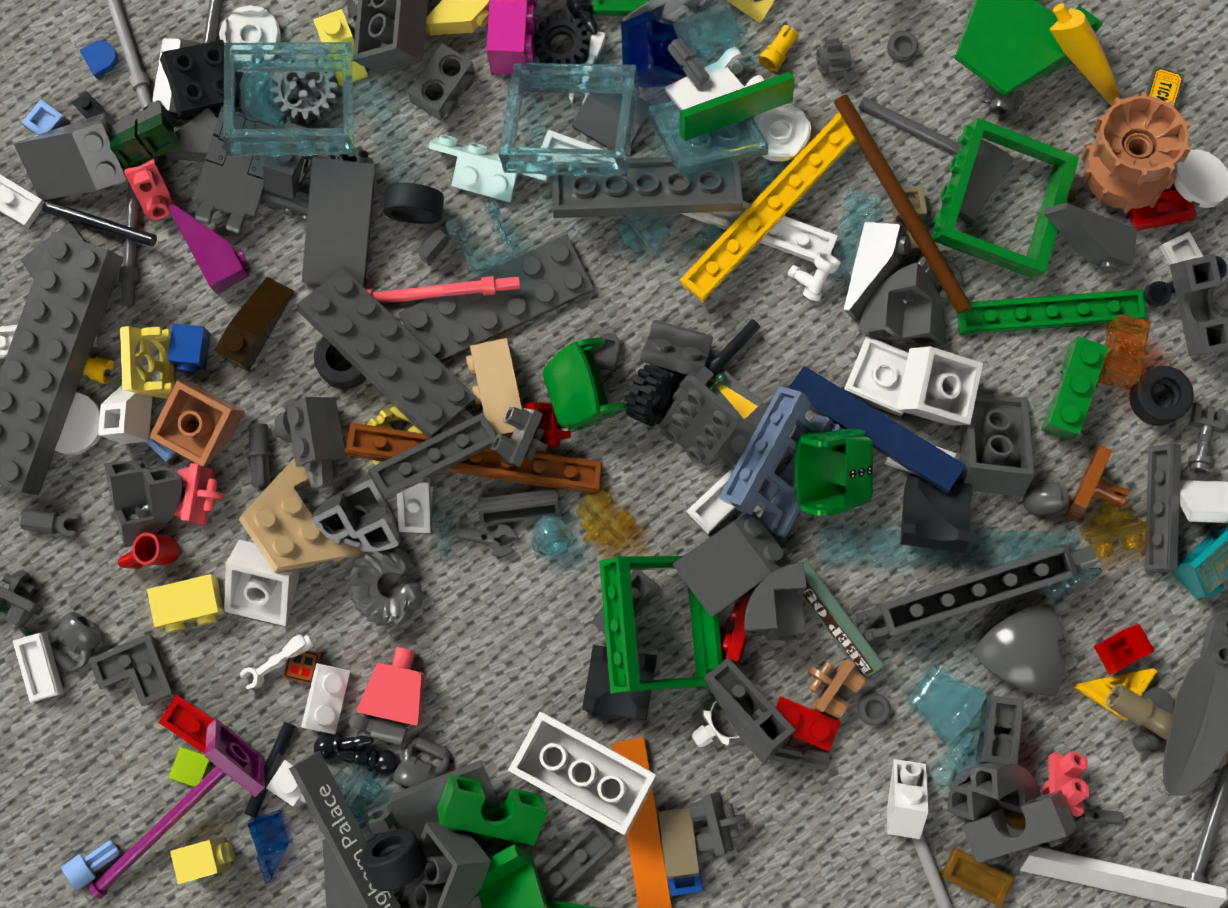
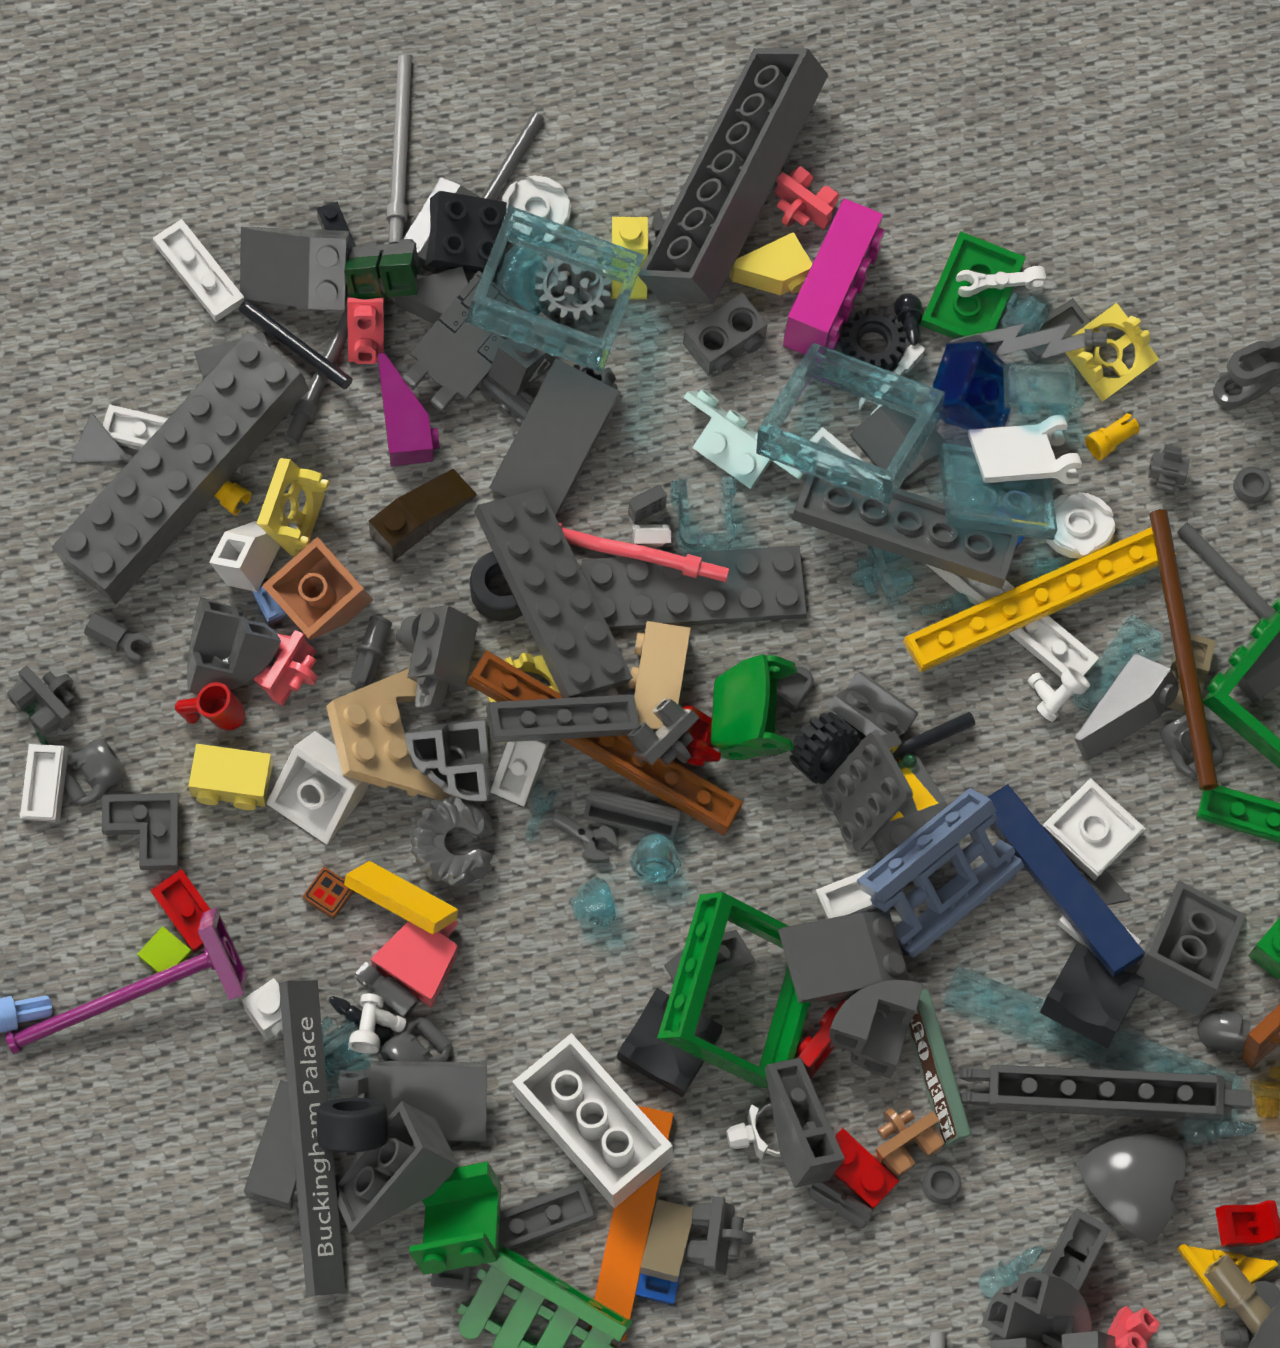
camera: 15 degrees right, 10 degrees down
(43, 118) = (278, 213): light blue tile -> none
(80, 426) = (189, 551): white tile -> none
(100, 57) = (364, 172): blue tile -> none
(189, 347) = (340, 510): blue brick -> none
(202, 859) = (143, 1049): light yellow brick -> none
(270, 841) = (219, 1065): clear blue slope -> none
(271, 767) = (260, 978): black bar -> none
(294, 647) = (331, 867): white piece -> none
(325, 698) = (340, 936): white plate -> none
(331, 745) = (335, 988): black bar -> none
(361, 650) = (401, 897): none -> yellow tile
(374, 756) = (365, 1039): none -> white piece
(413, 203) = (644, 449): black tyre -> none
(446, 271) = (651, 535): none -> white tile
(515, 820) = (500, 1141): green arch -> none
(516, 592) = (594, 903): none -> clear light blue cone
(601, 523) = (716, 865): clear yellow hips -> none
(692, 68) = (1005, 418): dark grey piece -> none
(736, 106) = (1038, 476): green tile -> none
(833, 471) = (995, 903): green piece -> none
(906, 309) = (1144, 765): dark grey brick -> none
(907, 799) = (940, 1292): white slope -> none
(939, 386) = (1149, 859): white brick -> none
(946, 702) = (1024, 1202): clear light blue piece -> none

